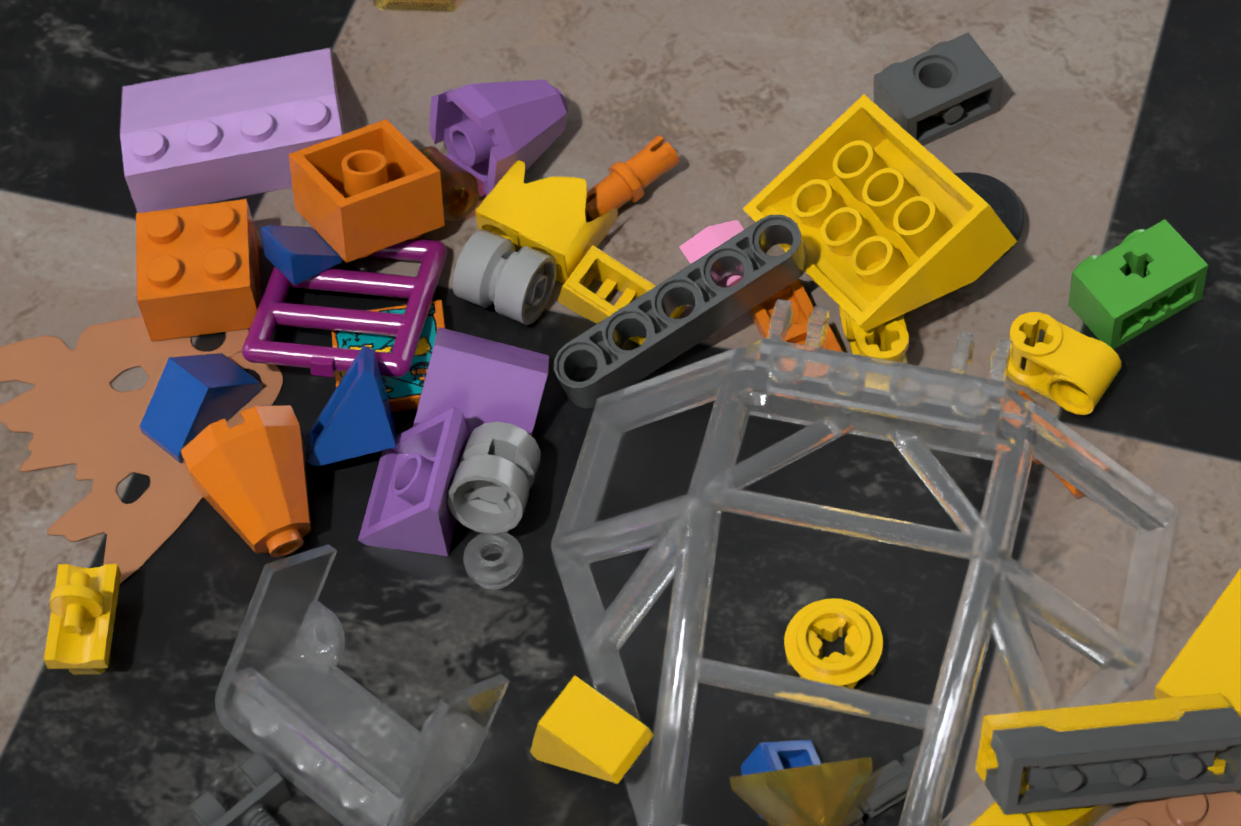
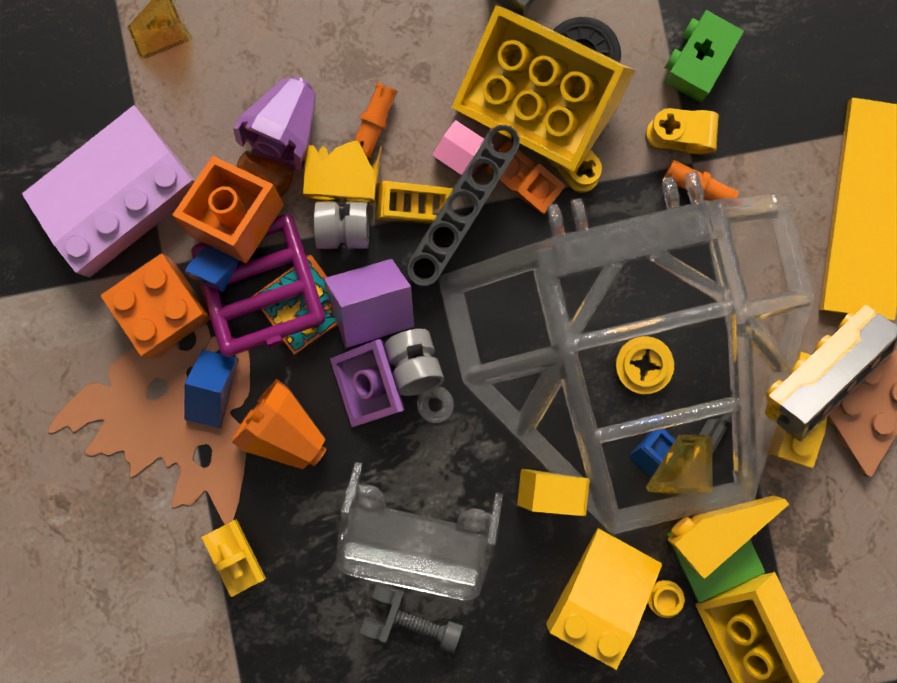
camera: 35 degrees left, 30 degrees up
(355, 417) = (309, 362): blue slope -> none

